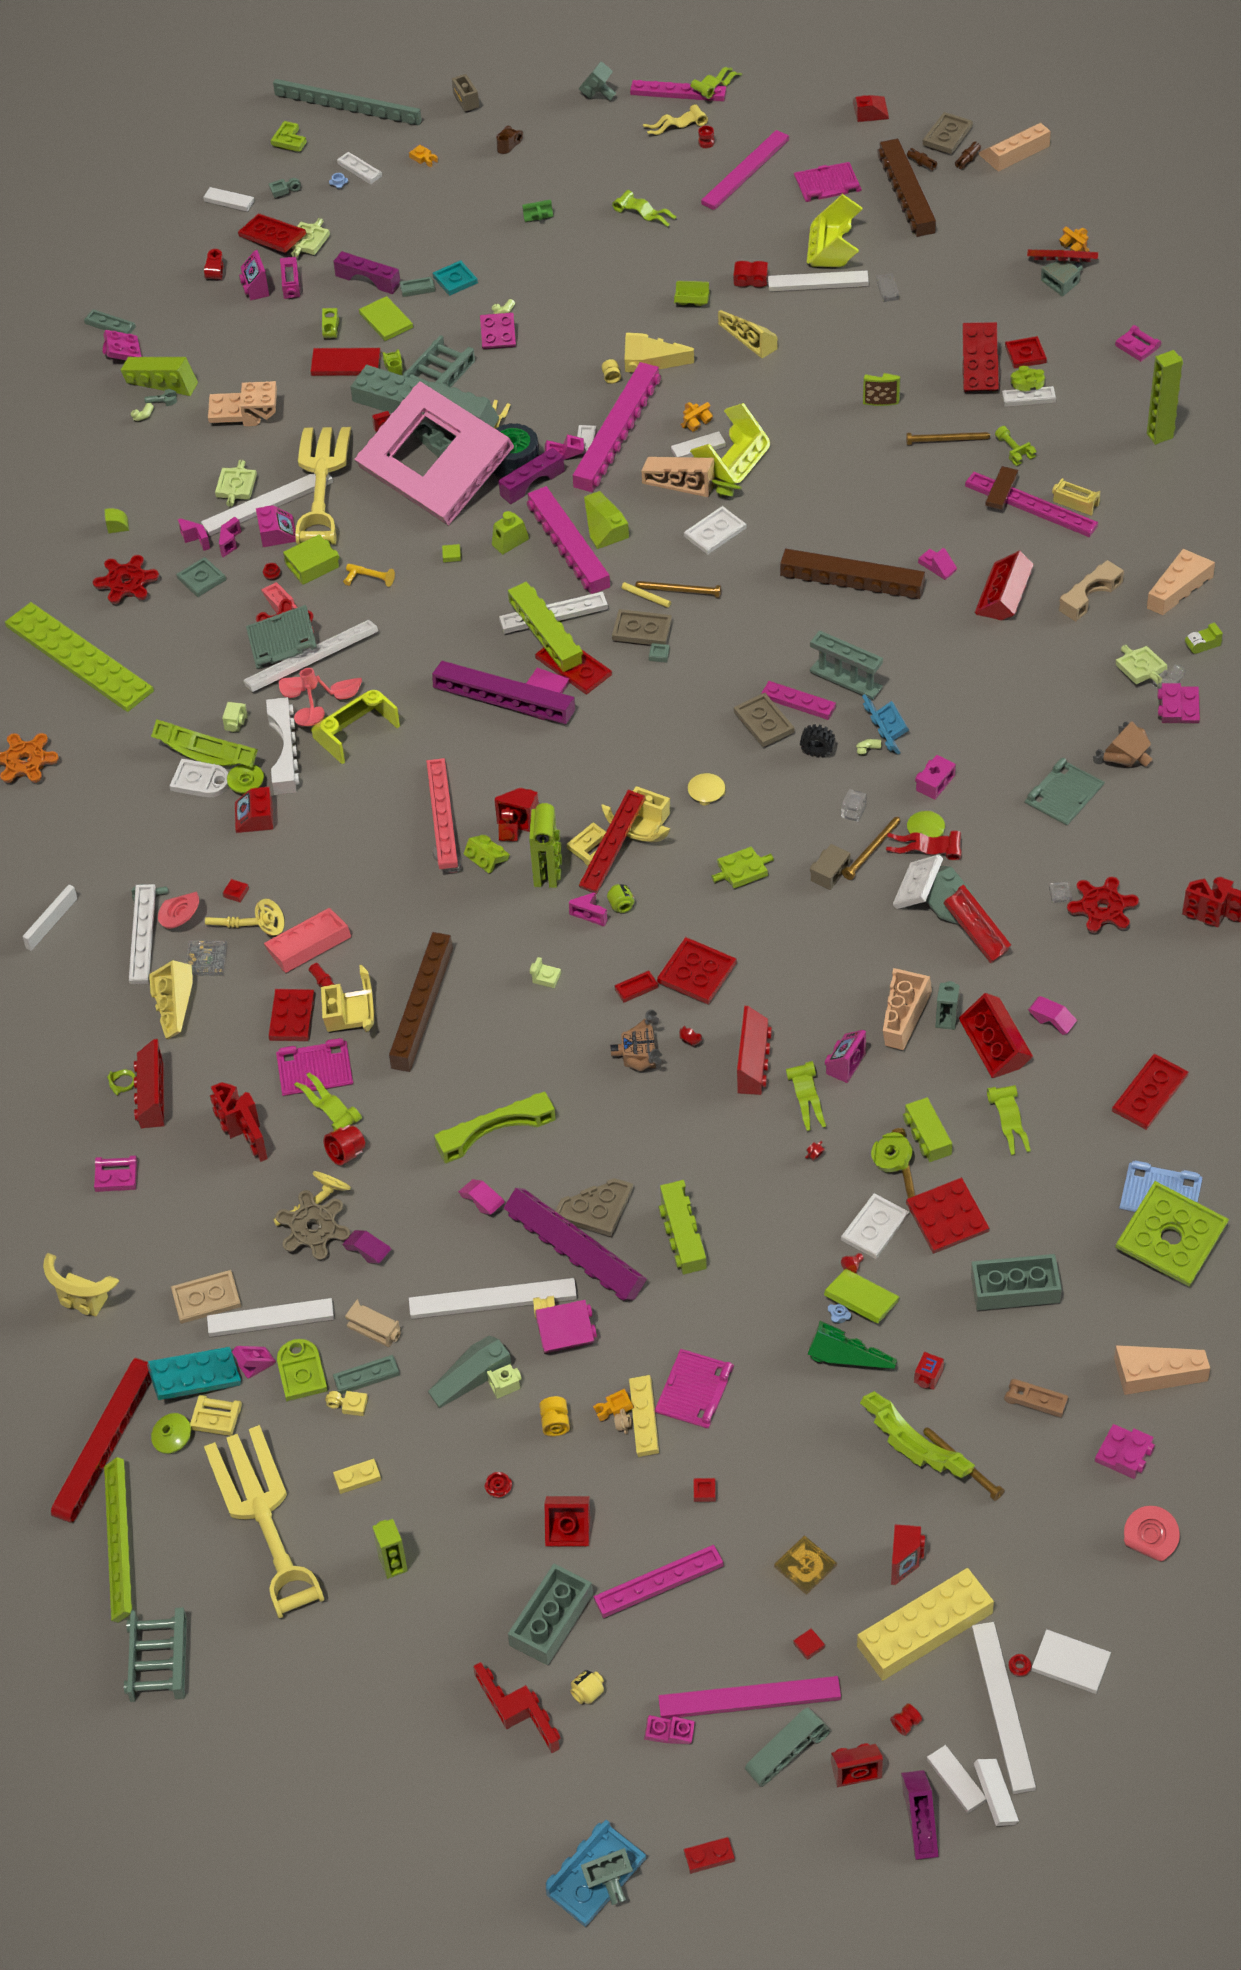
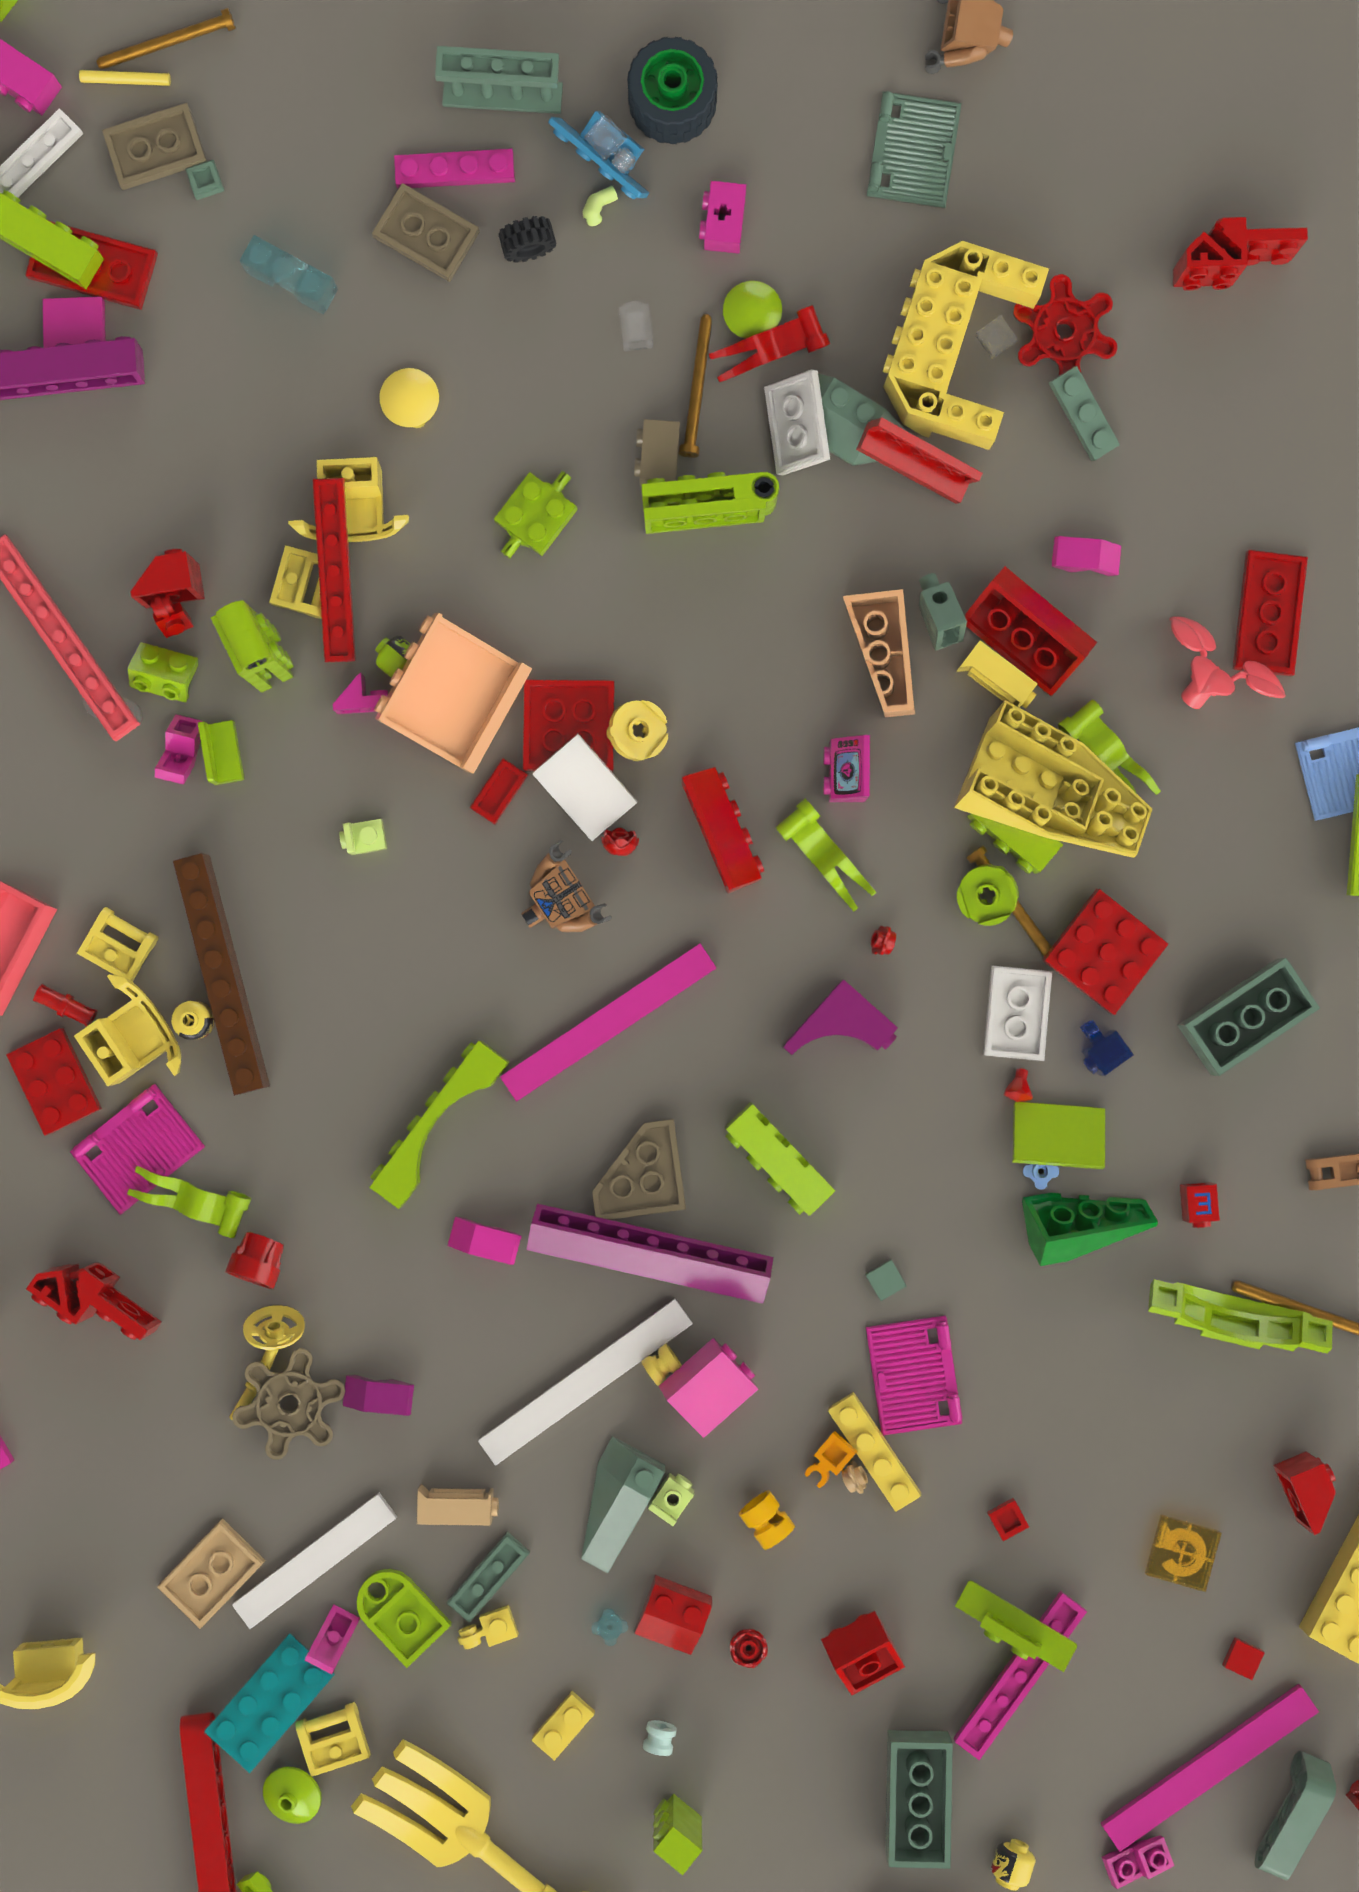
camera: 30 degrees left, 35 degrees up
(364, 958) = (112, 954): none -> light yellow plate
(390, 1014) = (202, 1020): none -> light yellow head
(411, 1506) = (659, 1738): none -> light aqua wheel
(421, 1439) = (609, 1618): none -> clear light blue plate
(463, 1444) = (674, 1615): none -> red slope
(472, 891) = (181, 750): none -> dark pink slope
(492, 901) = (221, 752): none -> lime panel
(626, 1123) = (608, 1022): none -> dark pink tile
(639, 922) = (451, 693): none -> light nougat panel
(673, 1546) = (1017, 1628): none -> lime bracket
(684, 714) = (279, 267): none -> clear light blue arch
(686, 1000) = (584, 787): none -> white tile
(708, 1327) = (885, 1280): none -> sand green tile
(730, 995) = (621, 731): none -> light yellow plate
(764, 1176) = (844, 1014): none -> magenta arch
(843, 895) = (708, 501): none -> lime hinge
(890, 716) = (606, 140): none -> clear plate
(916, 1264) = (1106, 1050): none -> clear blue brick
(940, 709) = (672, 90): none -> black wheel
(960, 1107) = (1051, 786): none -> light yellow wedge
(963, 1049) = (999, 676): none -> light yellow window
(1022, 860) = (934, 334): none -> light yellow wedge
(1090, 947) = (1084, 413): none -> sand green plate
(1091, 1081) = (1209, 678): none -> coral plant

